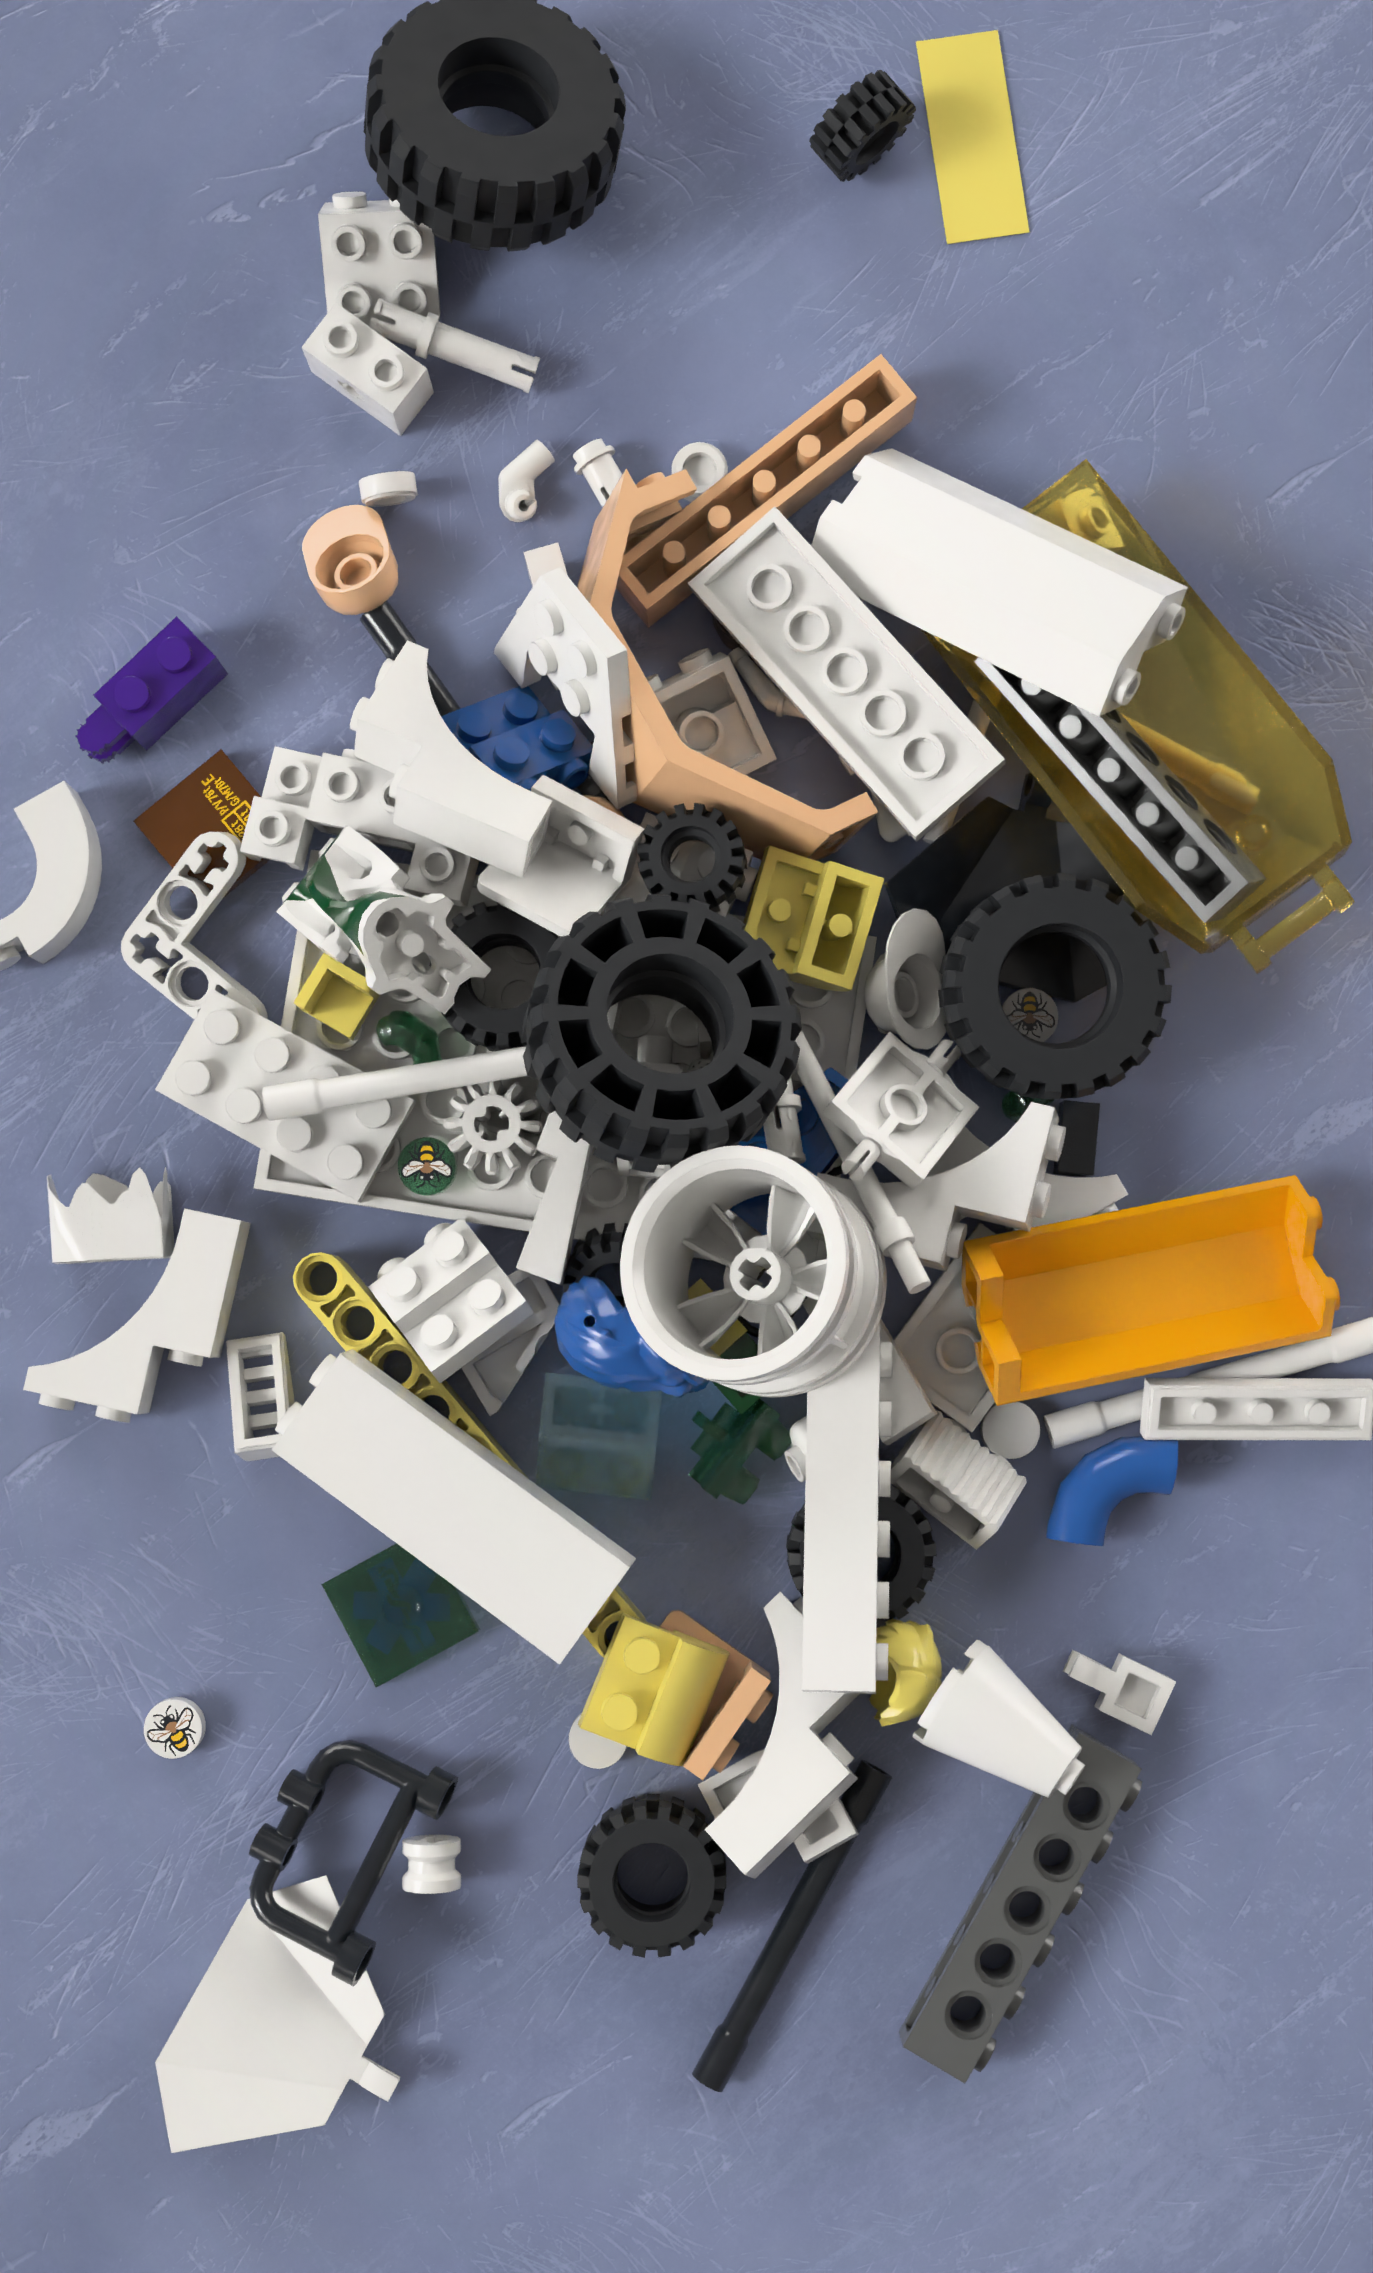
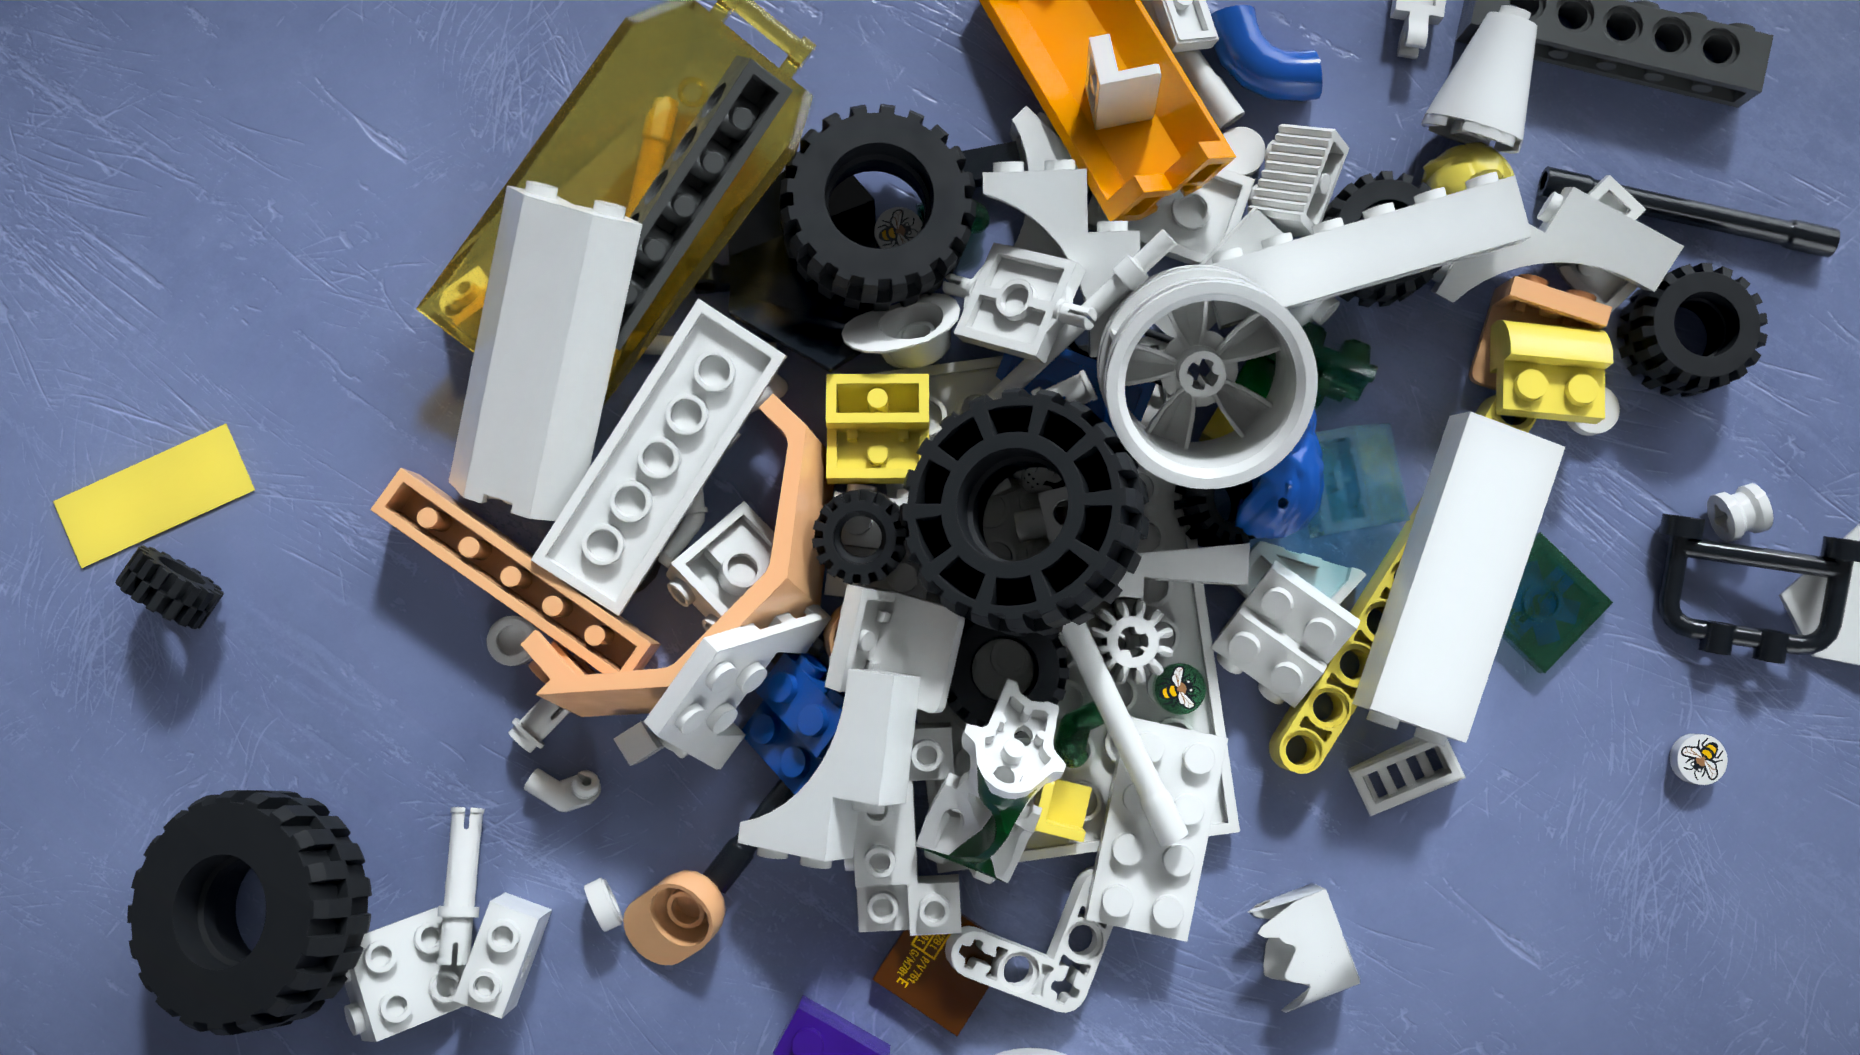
camera: 115 degrees left, 0 degrees up
(182, 1314) = (1369, 858): white arch -> none
(1102, 1289) = (1118, 95): none -> white panel

